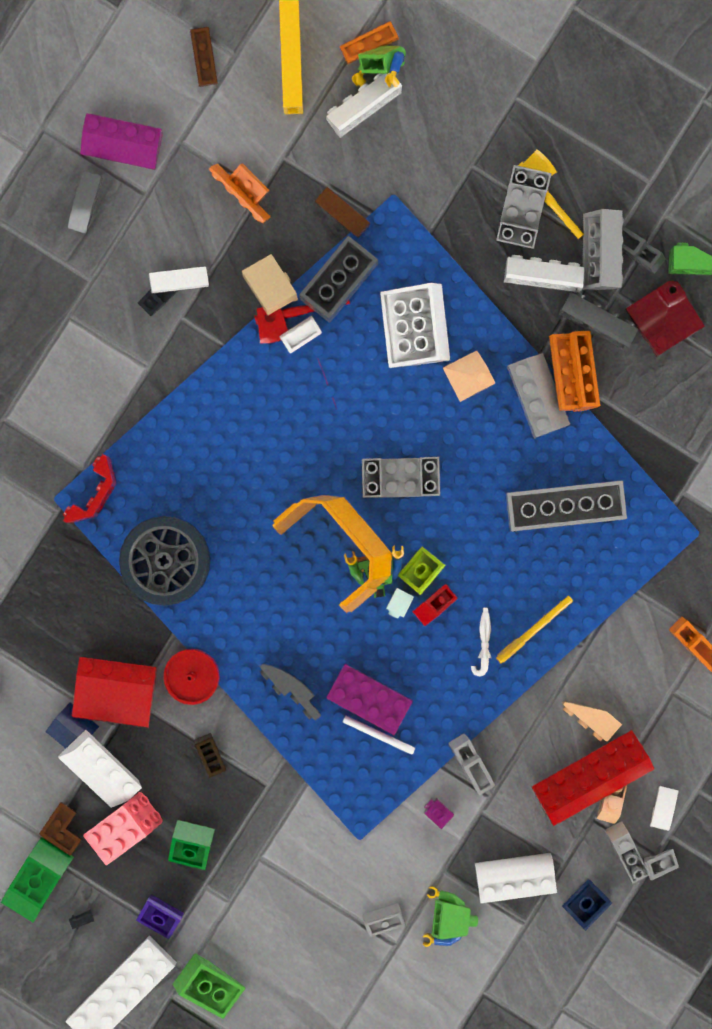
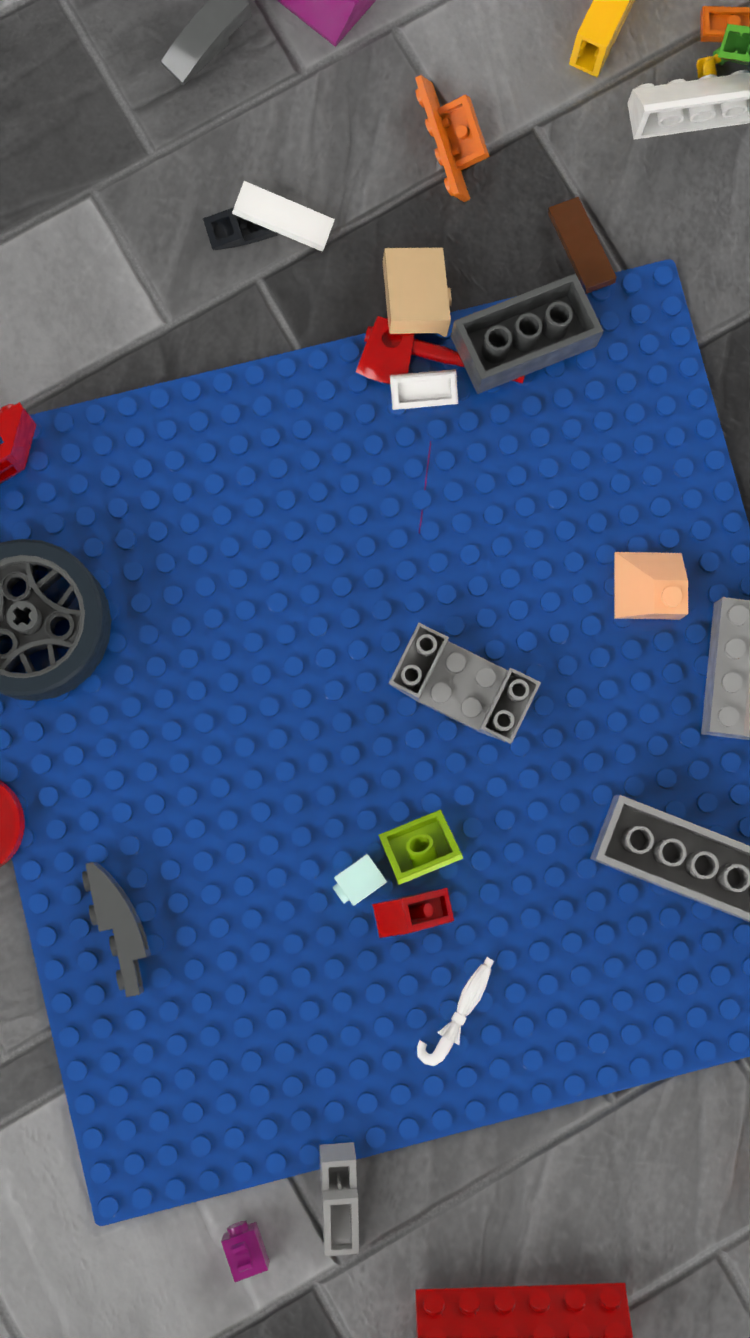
camera: 25 degrees right, 5 degrees down
(357, 530) = (353, 732): light orange piece -> none
(360, 569) = (350, 808): torso -> none
(369, 699) = (231, 1009): magenta brick -> none
(379, 735) = (217, 1073): white bar -> none
(415, 325) = (606, 465): white slope -> none
(518, 643) = (512, 1045): yellow piece -> none
(598, 720) = (578, 1236): light nougat slope -> none

